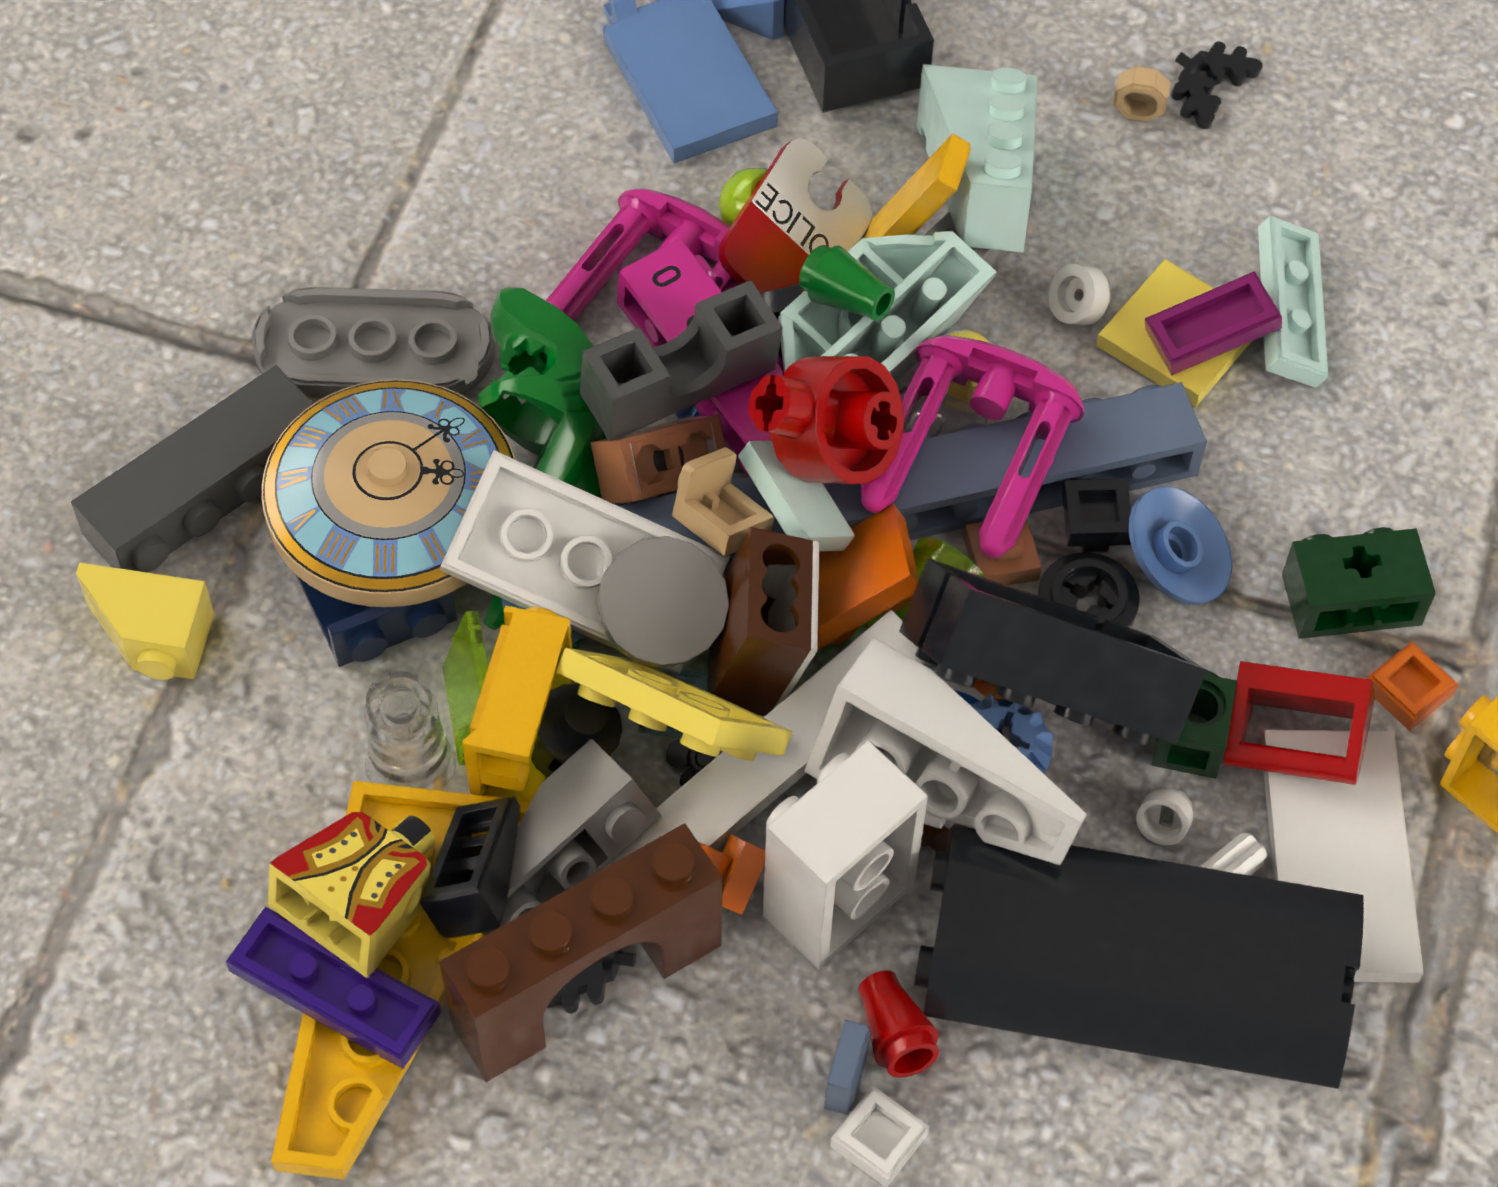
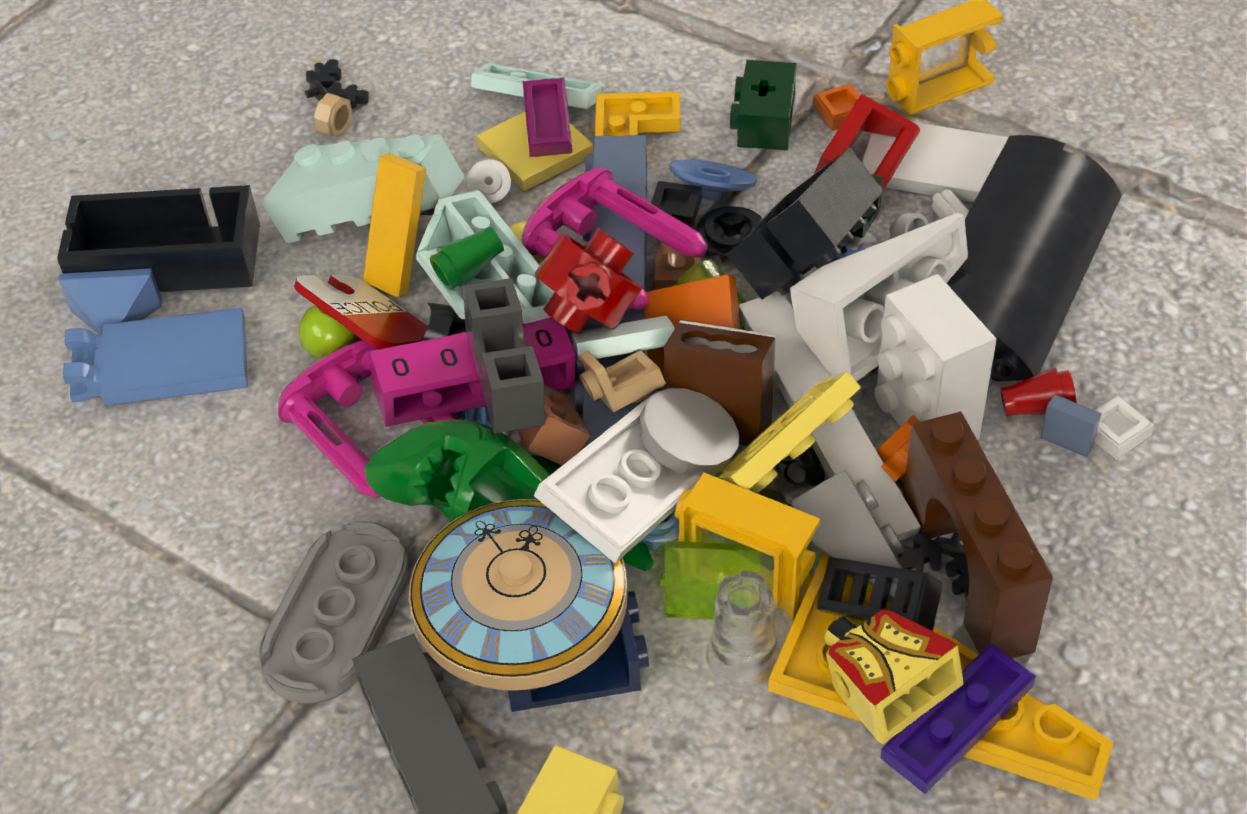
camera: 70 degrees left, 10 degrees down
(1273, 419) = (637, 113): none -> yellow plate

